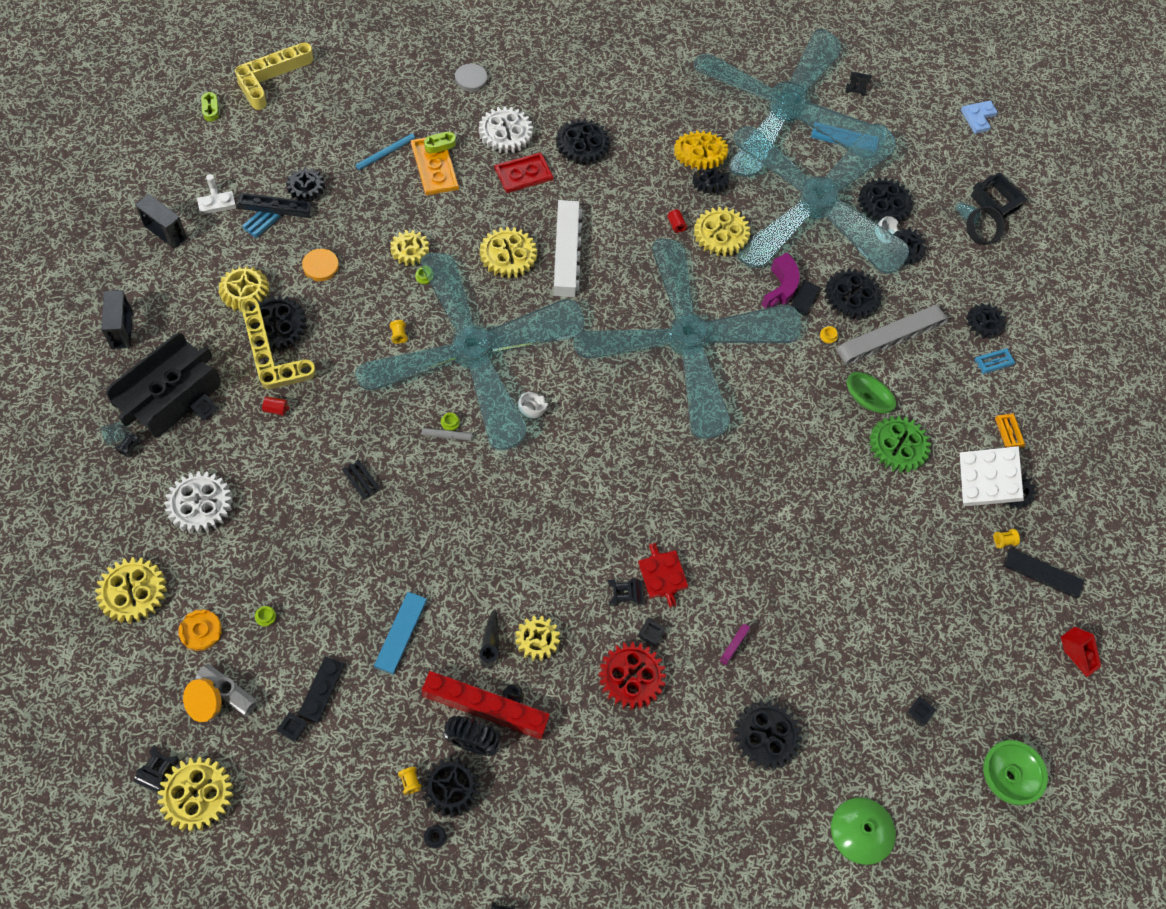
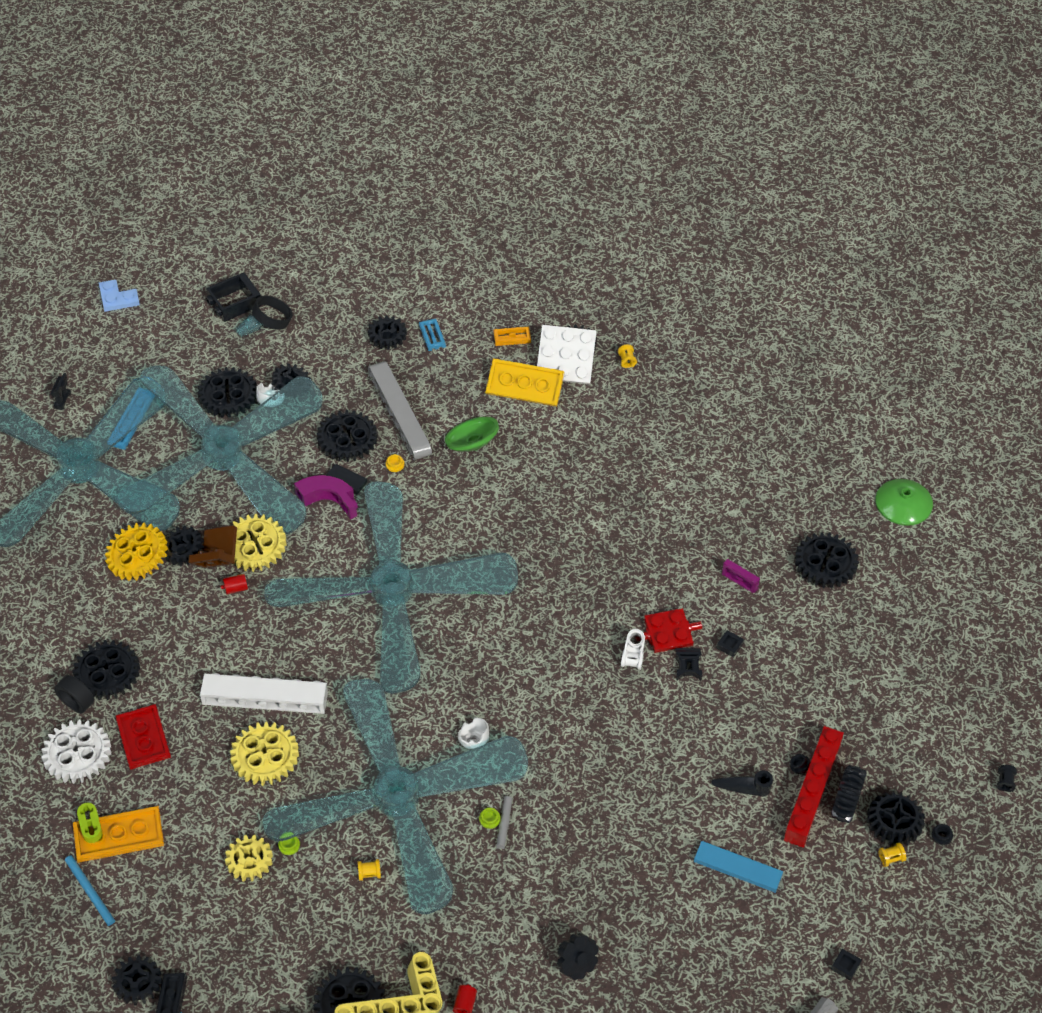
camera: 80 degrees left, 10 degrees down
(265, 616) = (725, 998): lime plate -> none
(306, 487) = (577, 956): none -> black plant
(320, 264) = (262, 960): light orange tile -> none
(321, 690) = (803, 940): black plate -> none
(353, 467) = (575, 898): black tile -> none
(530, 642) = (741, 740): light yellow gear -> none
(554, 119) = (74, 694): none -> black tyre
(630, 540) = (633, 653): none -> white piece
(645, 688) = (775, 662): red gear -> none
(701, 205) = (218, 548): none -> reddish brown bracket
(915, 453) = (526, 421): bright green gear -> none
(921, 711) = (796, 444): black plate -> none
(948, 442) = (525, 382): none -> yellow tile
(1024, 764) = (852, 378): bright green dish -> none
(1043, 573) = (659, 337): black tile -> none
(1082, 650) = (733, 322): red slope -> none

